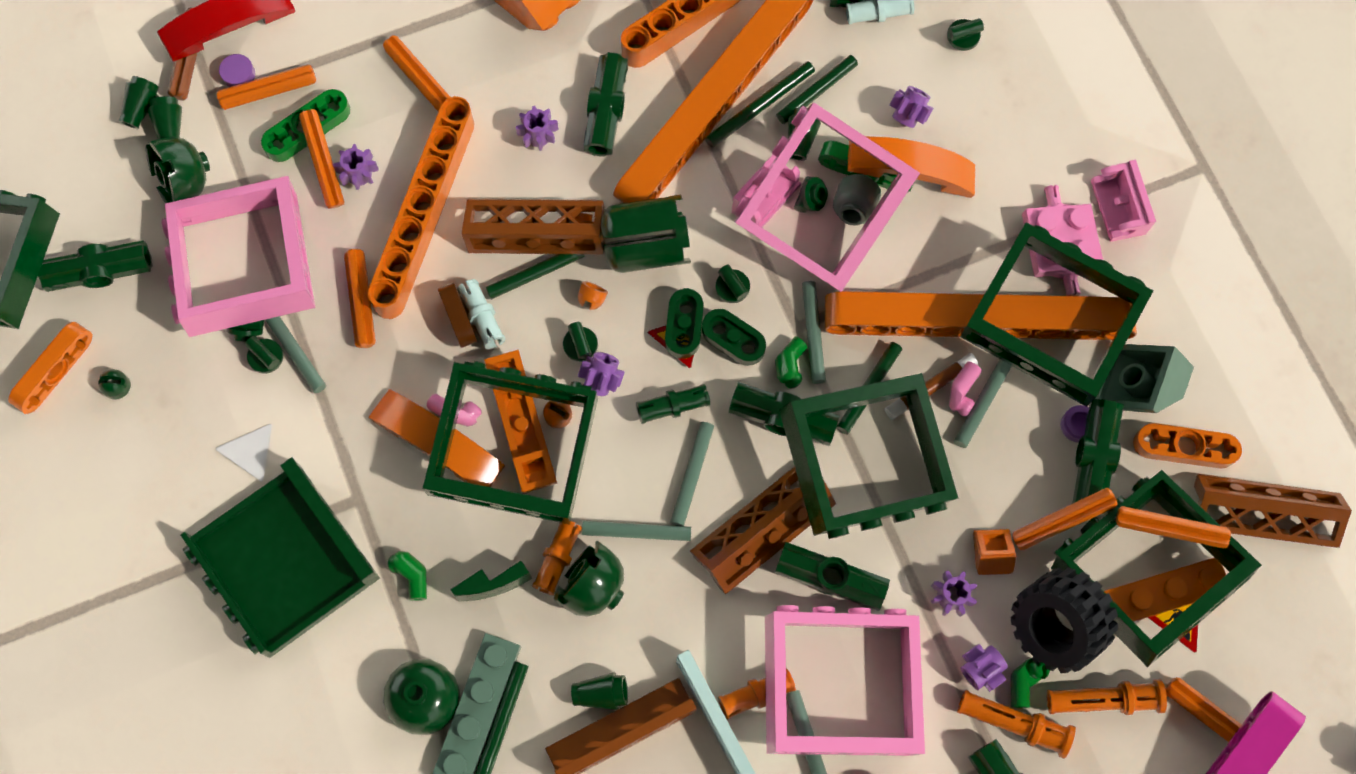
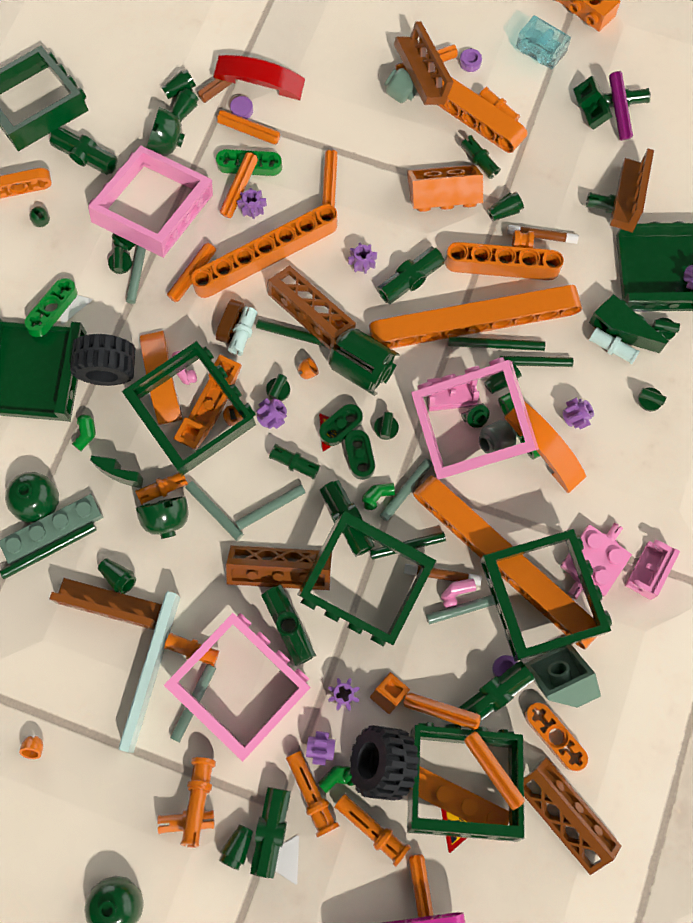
camera: 45 degrees right, 0 degrees up
(246, 482) = (50, 317): none -> green beam
(362, 474) = (102, 359): none -> black tyre

